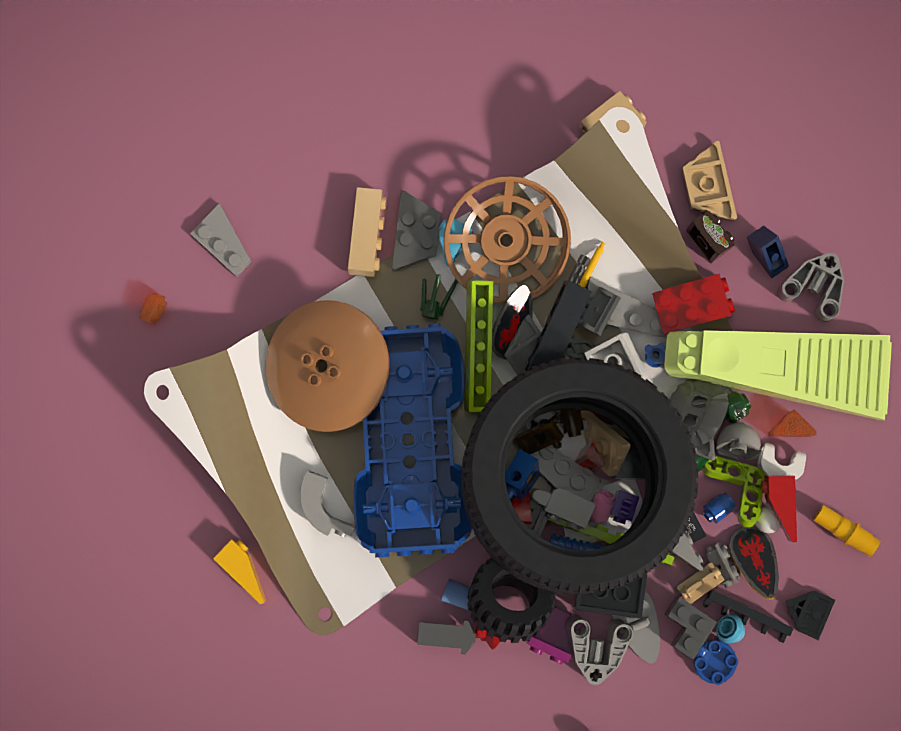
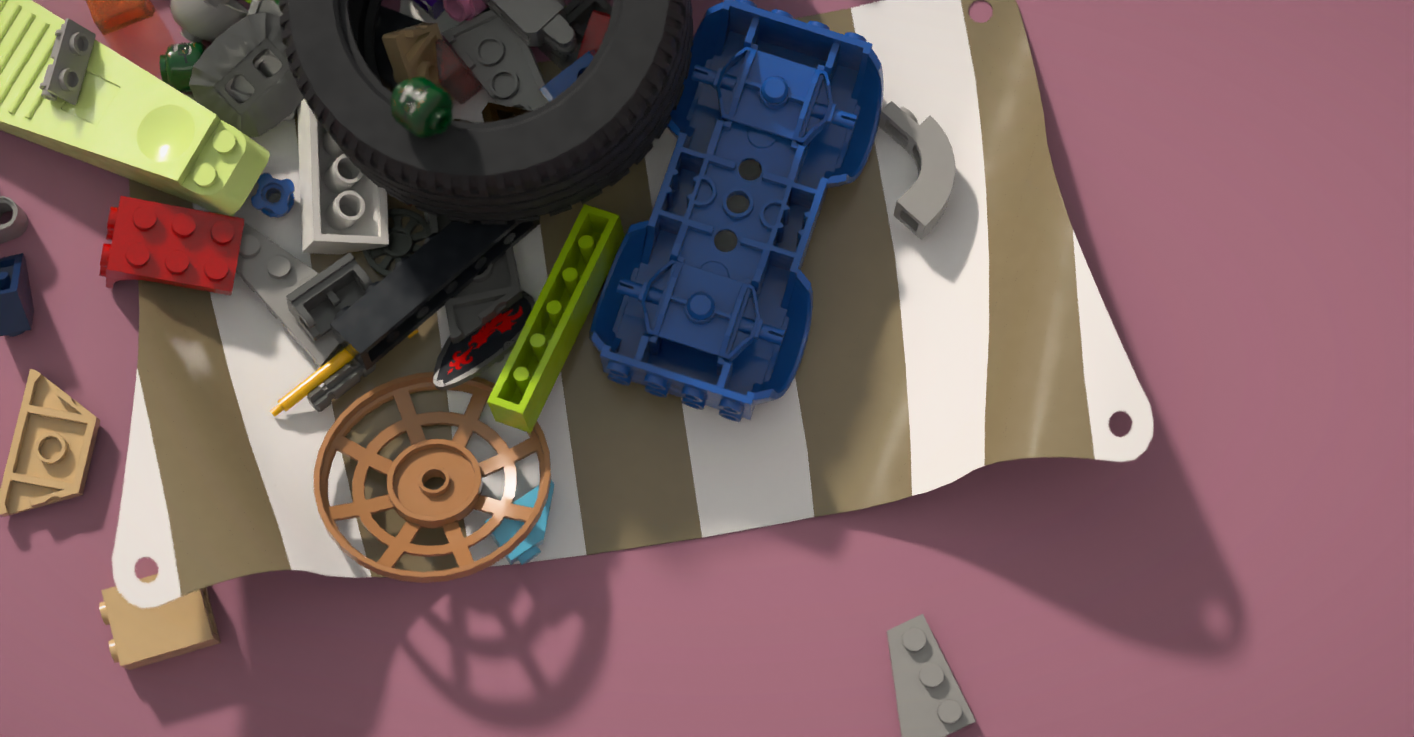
camera: 155 degrees left, 5 degrees down
(153, 308) = (1087, 612): clear orange brick -> none
(239, 566) = (1092, 134): yellow slope -> none
(354, 371) = (775, 386): medium nougat dish -> none
(365, 232) = (667, 595): tan brick -> none
(415, 232) = (582, 567): dark grey wing -> none
(431, 308) = (607, 422): dark green plant -> none
(582, 391) = (421, 107): none -> dark green head
(710, 236) = (89, 353): dark brown slope -> none
(791, 366) = (71, 58): none -> light grey hinge

